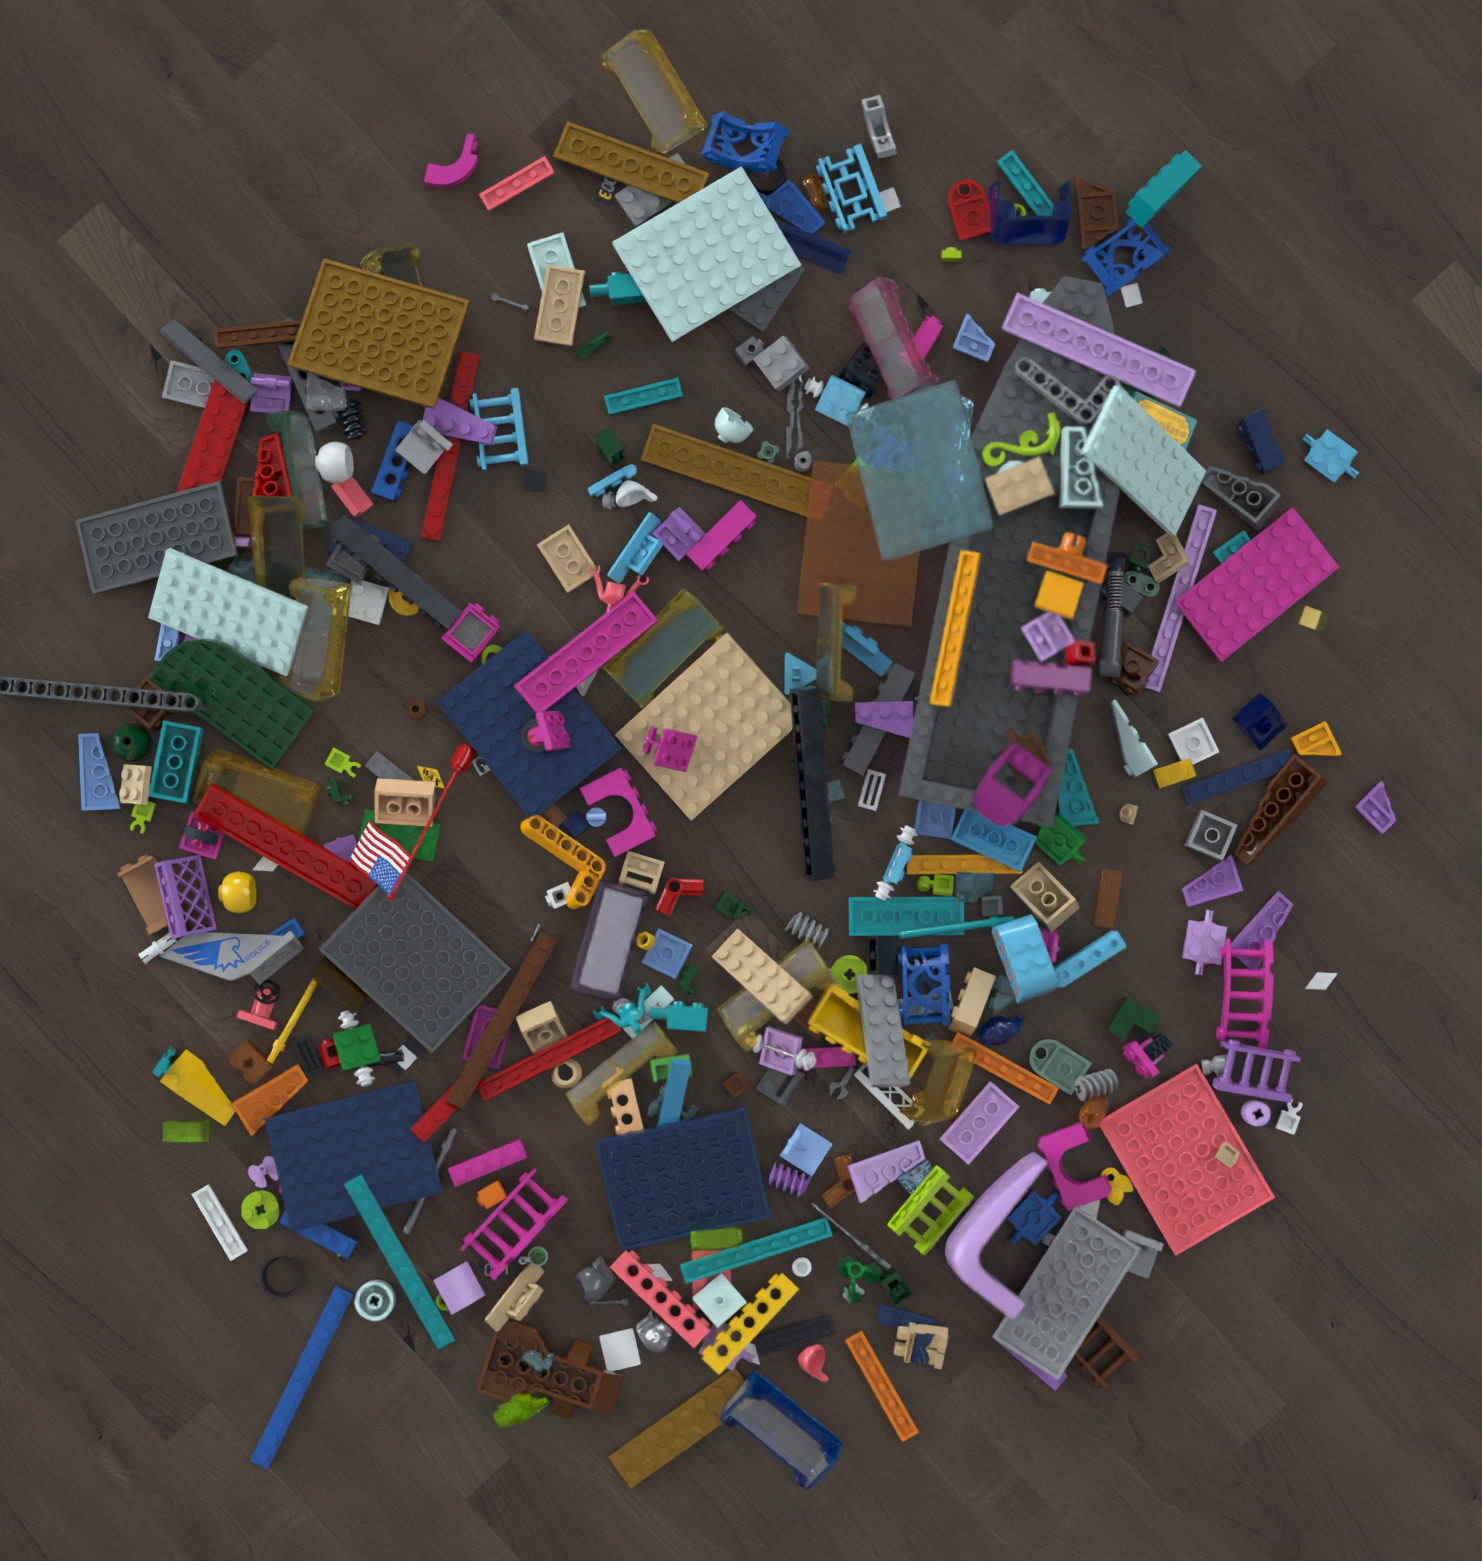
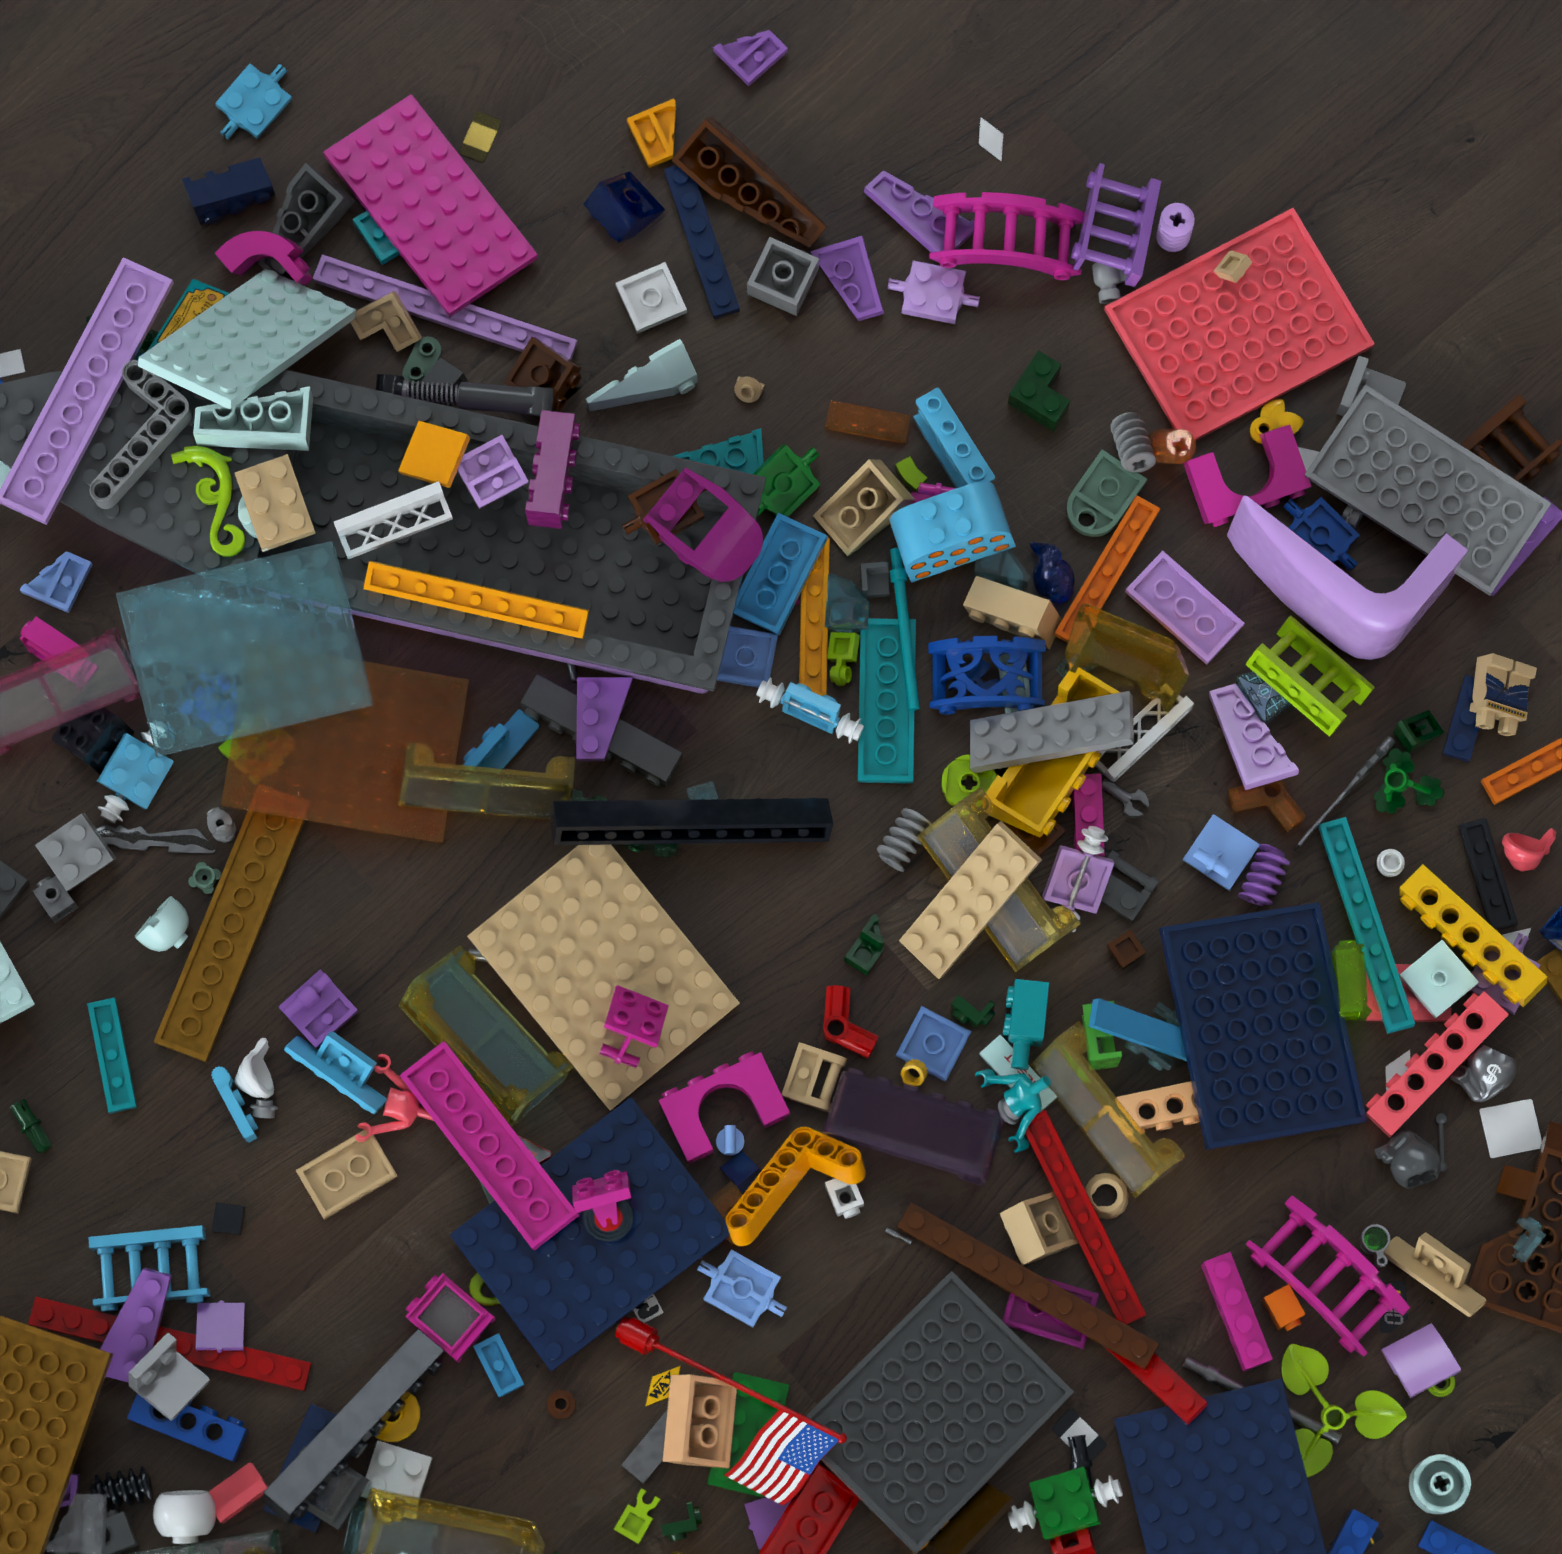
camera: 85 degrees left, 10 degrees down
(399, 1261) = (1382, 1445): teal plate -> none
(426, 1256) = (1375, 1413): none -> lime plant
(440, 666) = (499, 1365): none -> dark azure plate
(462, 479) = (220, 1326): none -> medium lavender piece
(496, 828) = (742, 1288): none -> light blue plate
(610, 447) = (185, 1097): dark green brick -> none
(718, 539) = (324, 947): dark pink brick -> none
(797, 673) = (530, 846): medium azure piece -> none
(867, 805) = (699, 754): white tile -> none
(882, 955) = (942, 734): black brick -> none
(1017, 565) = (390, 510): none -> white fence
(1068, 558) = (382, 440): orange plate -> none
(1069, 929) = (910, 474): none -> lime piece
(1080, 654) = (520, 425): red brick -> none
(1136, 564) = (394, 366): dark green bracket -> none
(1147, 1054) = (1091, 371): dark pink plate -> none
(1174, 773) = (692, 323): yellow plate -> none
(1218, 456) = (249, 247): none -> dark pink arch
(1288, 1119) = (1184, 187): white plate -> none

